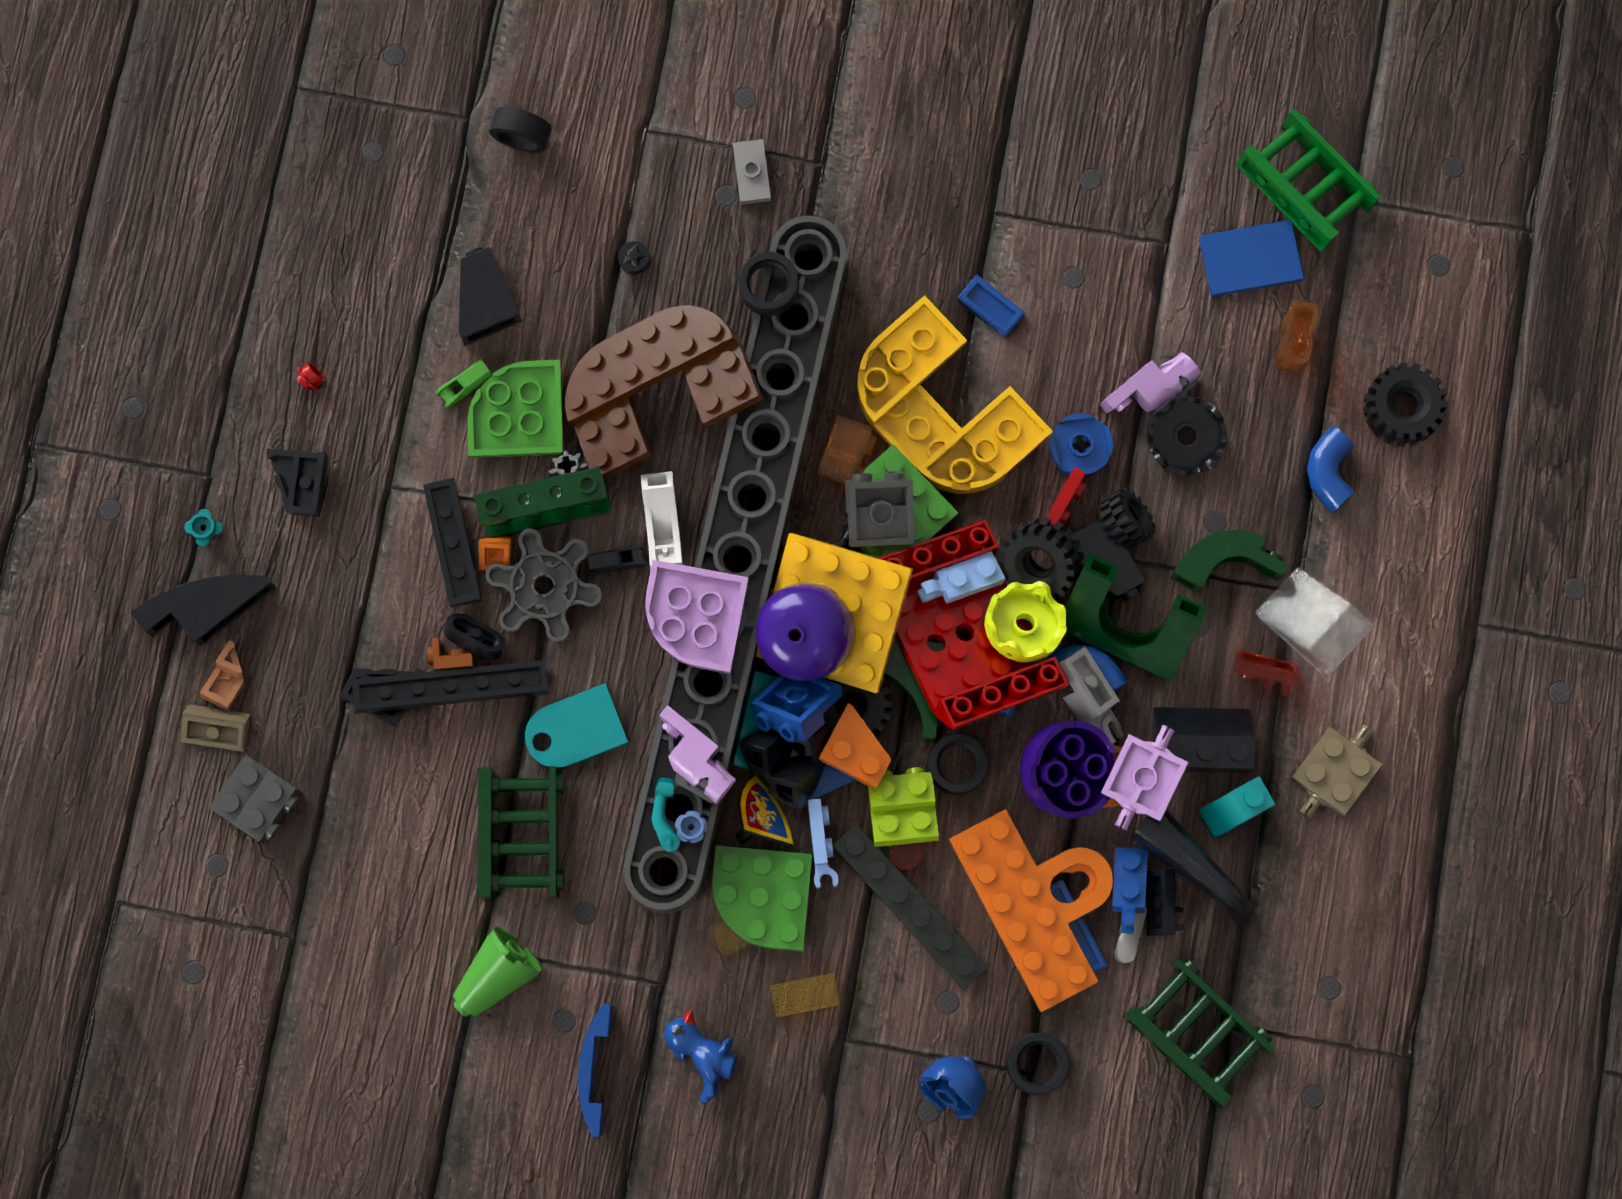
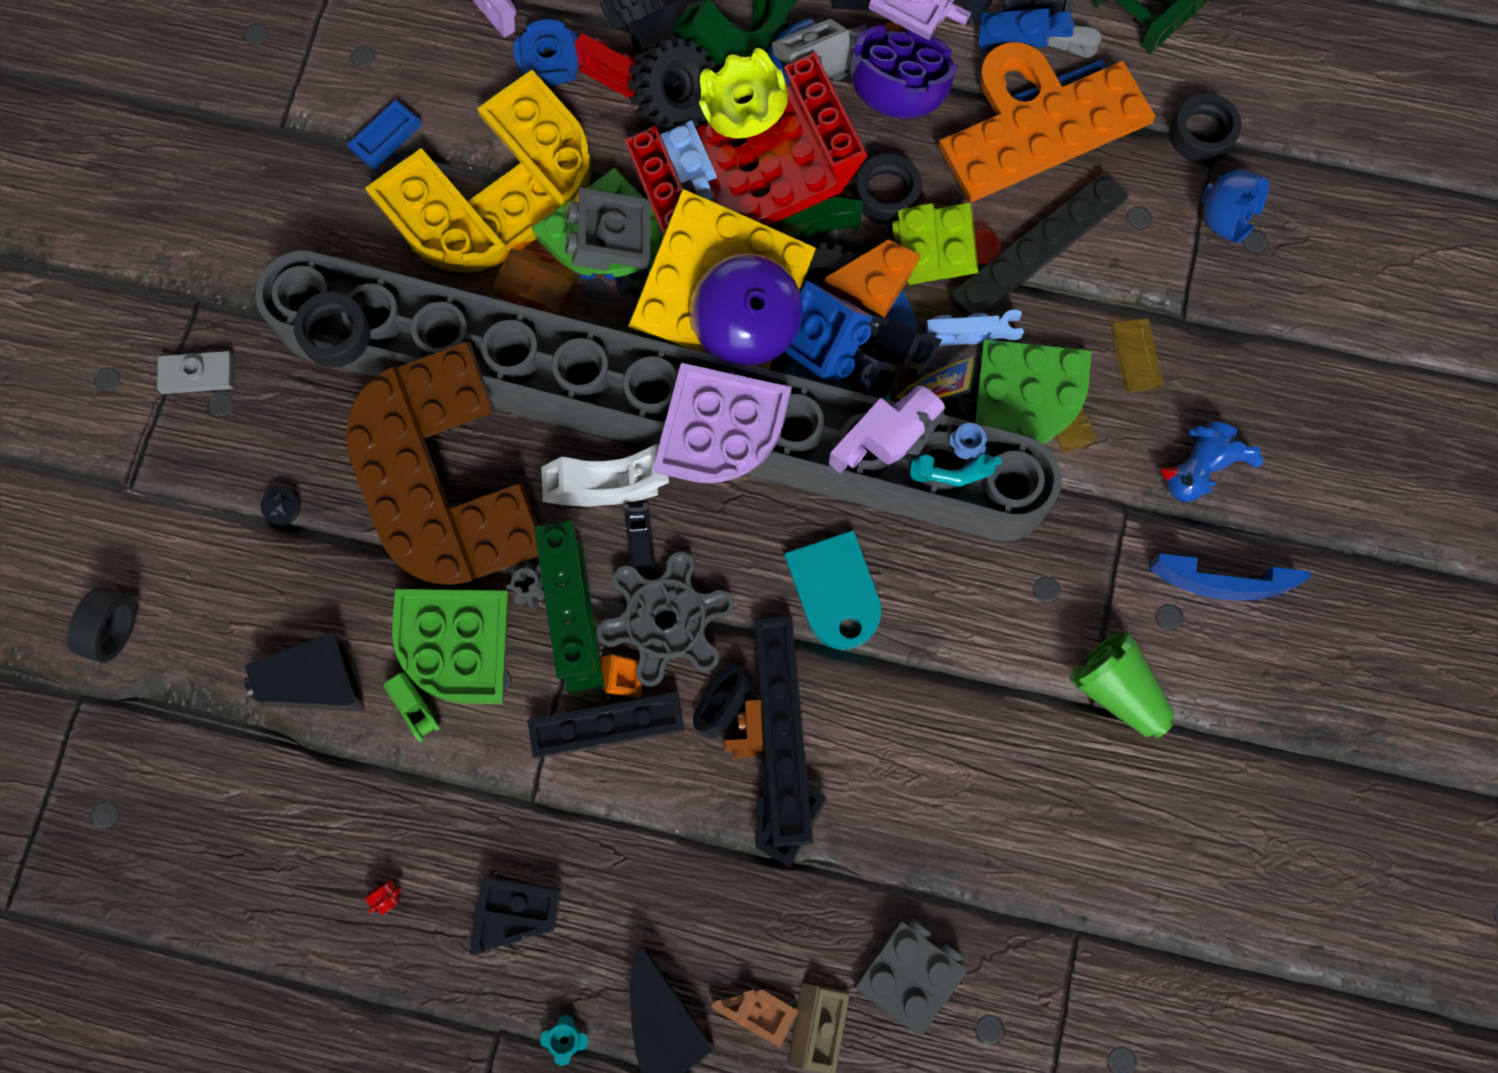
camera: 85 degrees left, 5 degrees down
(492, 817) = (939, 687): dark green fence -> none

